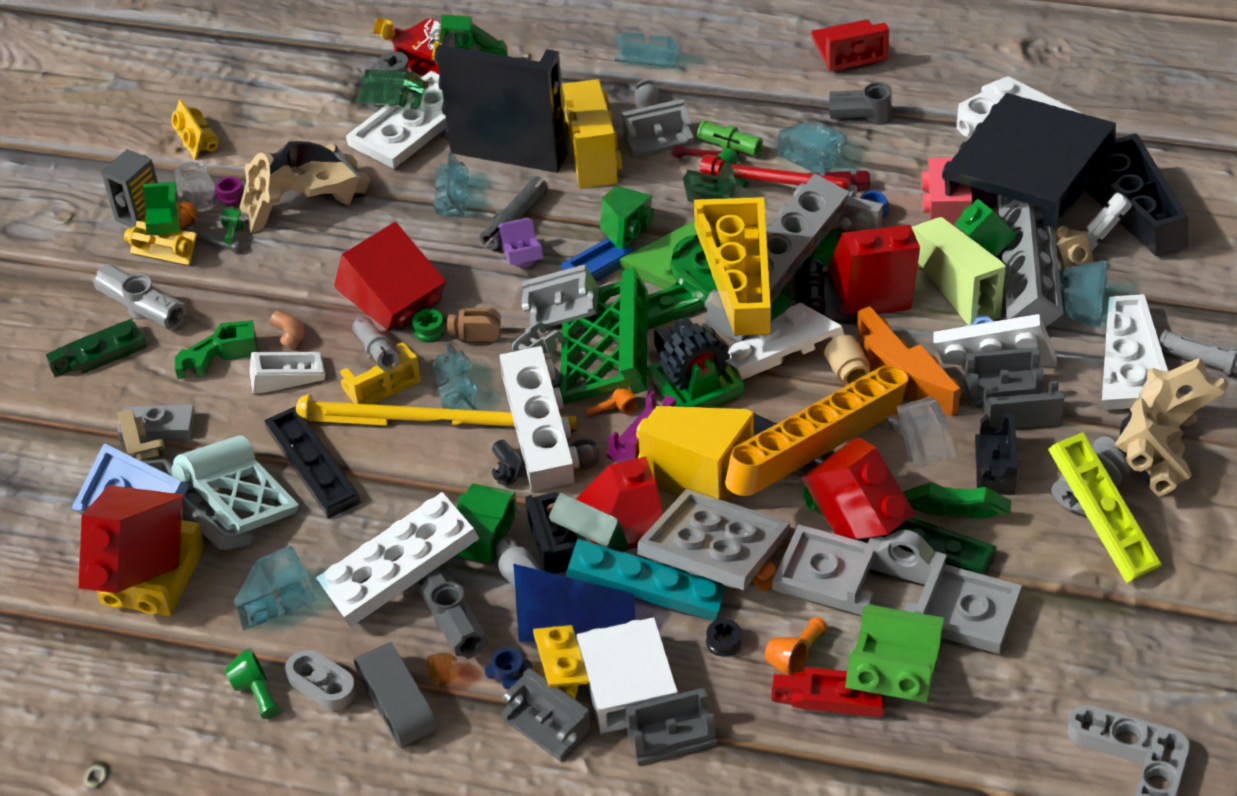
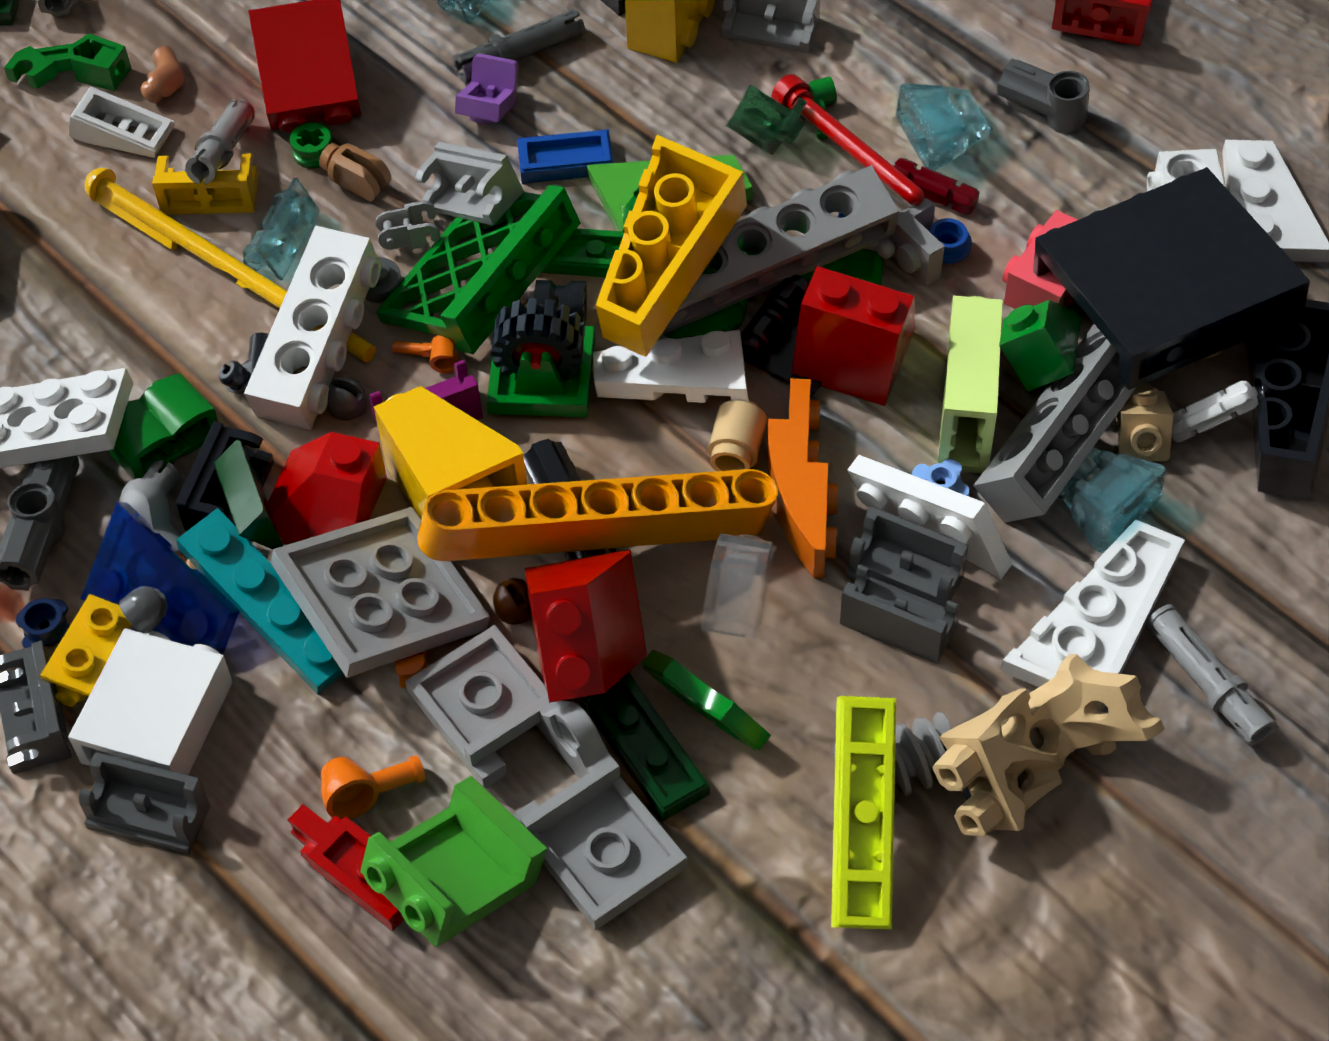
camera: 30 degrees right, 10 degrees up
(312, 462) = (57, 256): black tile -> none
(581, 615) = (144, 608): none -> dark grey hinge
(625, 215) = (633, 110): green slope -> none
(679, 151) = (781, 54): dark red hinge -> none
(723, 626) = (289, 714): black bush -> none
(748, 144) = (849, 65): bright green pin -> none
(792, 509) = (505, 606): none -> reddish brown hinge
(997, 455) = (811, 666): black hinge -> none

